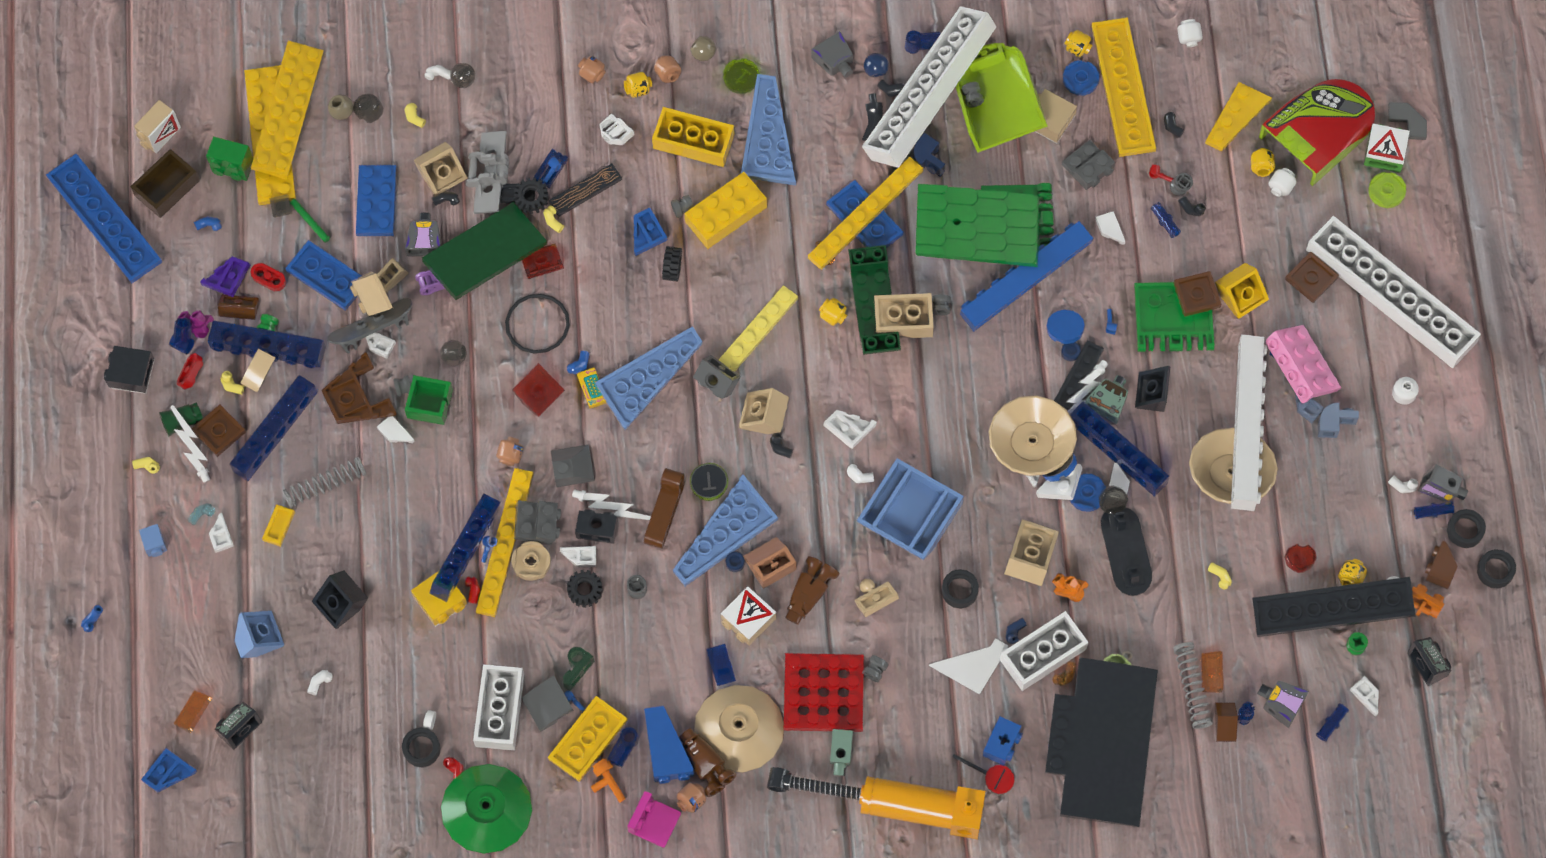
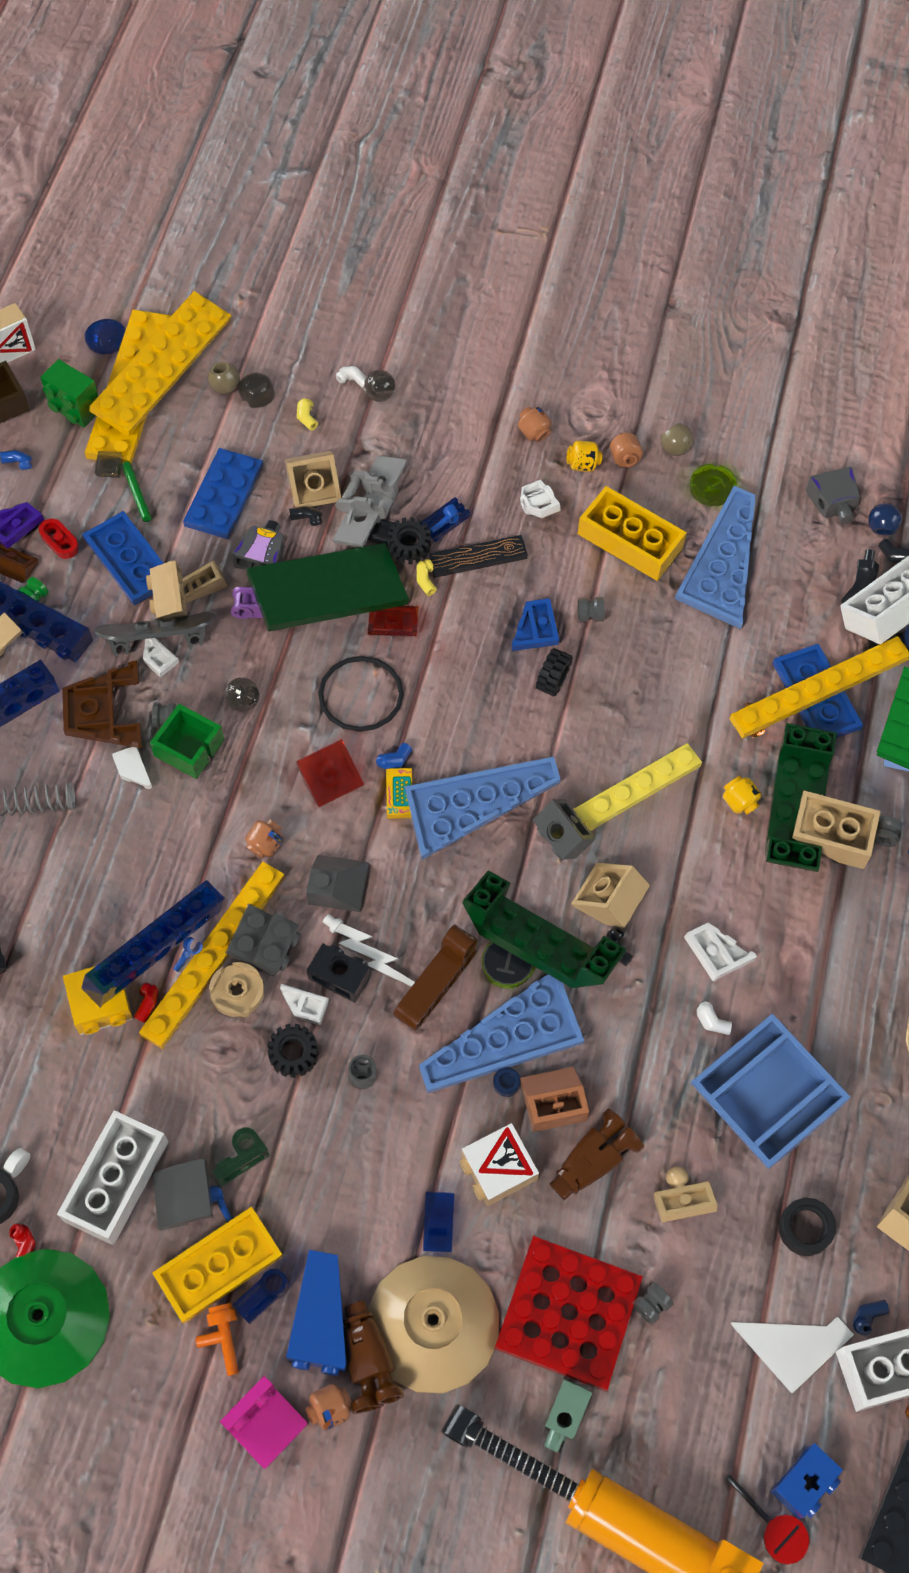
camera: 15 degrees right, 5 degrees down
(231, 99) = (104, 336): none -> clear blue wheel
(723, 459) = (536, 938): none -> dark green slope
(725, 210) = (643, 630): yellow brick -> none

